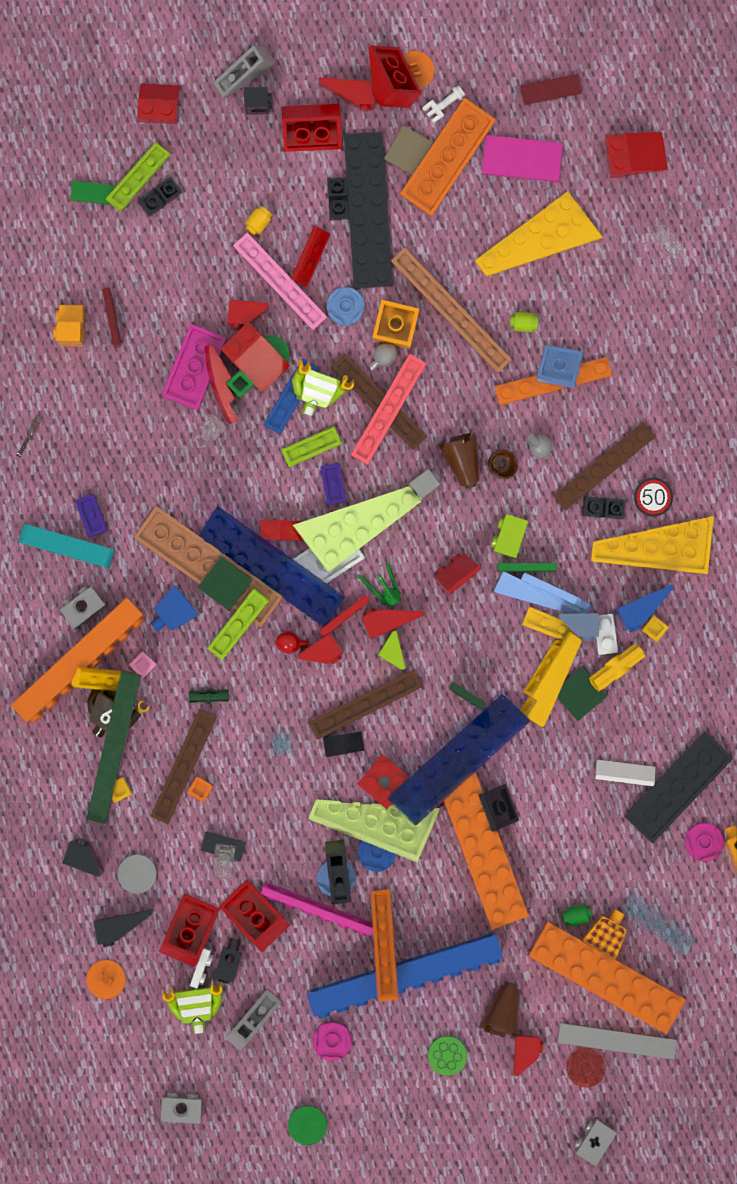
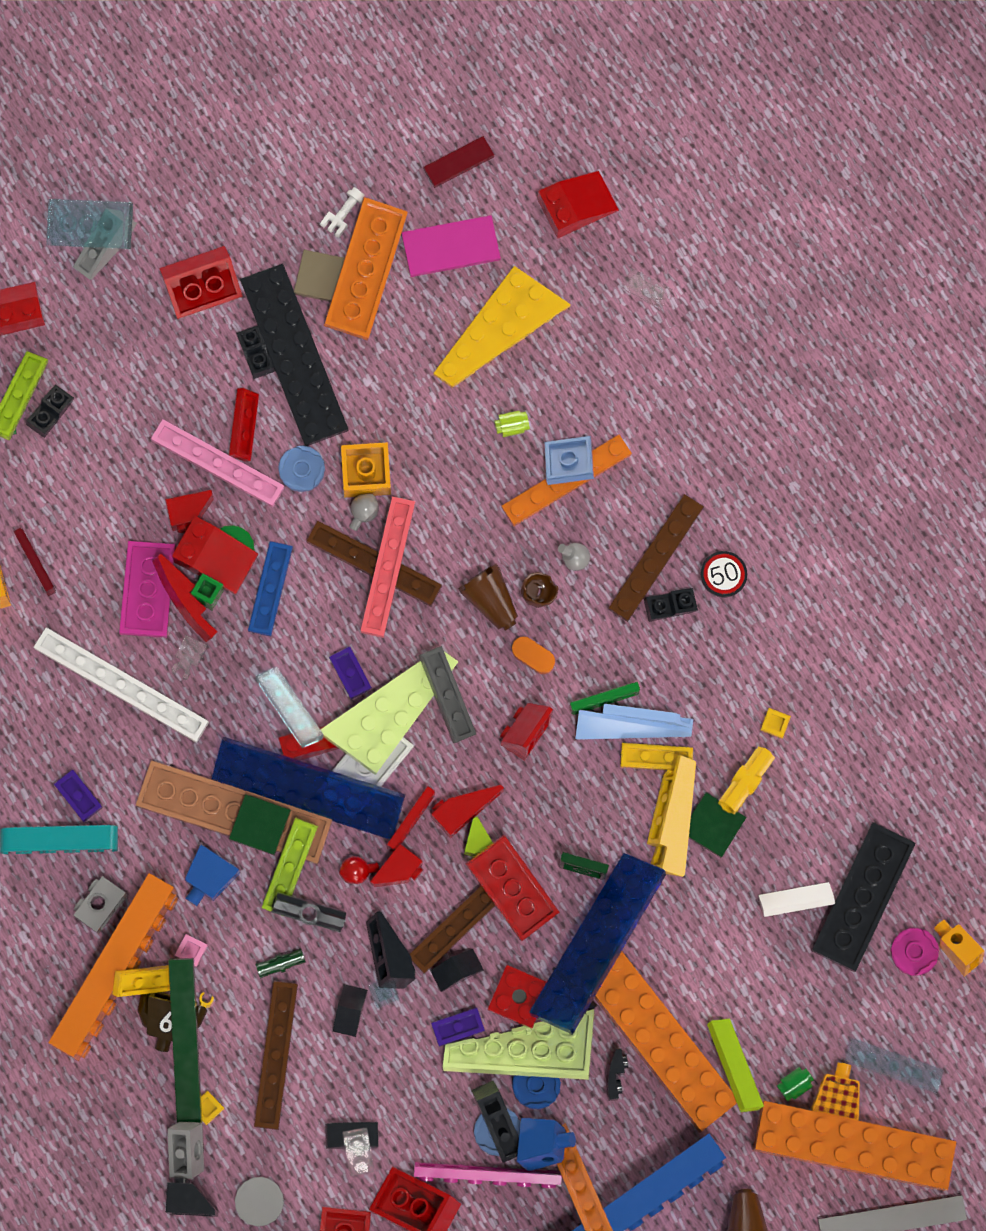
camera: 20 degrees left, 10 degrees down
(92, 819) = (185, 1150): none -> light grey brick
(150, 437) = (121, 685): none -> white plate
(200, 789) = (303, 1076): orange plate -> none
(236, 53) = (89, 224): none -> clear light blue tile
(251, 749) = (349, 1010): none -> black slope
(252, 670) = (323, 916): none -> black piece
(257, 100) = (130, 269): black brick -> none
(258, 220) = (171, 403): yellow brick -> none
(276, 498) = (289, 707): none -> clear light blue tile
(294, 718) = (390, 957): none -> black slope
(311, 446) = (312, 638): lime tile -> none
(317, 388) = (297, 568): torso -> none
(330, 788) = (458, 1027): none -> dark purple plate
(355, 92) = (237, 229): red slope -> none
(366, 900) = (542, 1143): none -> blue torso
(390, 596) = (458, 779): green plant -> none
(392, 78) = (276, 200): red slope -> none
(403, 526) = (447, 694): none -> dark grey tile
(406, 695) = (512, 888): none -> red tile
(421, 67) = (298, 186): orange piece -> none
(425, 484) = (457, 638): light grey brick -> none
(443, 858) = (617, 1066): none -> black slope
(451, 310) = (424, 436): nougat plate -> none
(481, 514) = (533, 655): none -> orange tile
(498, 807) = (663, 985): black tile -> none
(510, 536) = (574, 668): lime brick -> none
(534, 887) = (735, 1065): none -> lime tile
(582, 624) = (690, 742): sand blue slope -> none
(607, 637) = (720, 747): white plate -> none
(639, 611) = (747, 709): blue slope -> none
(671, 547) = (761, 626): yellow wing -> none

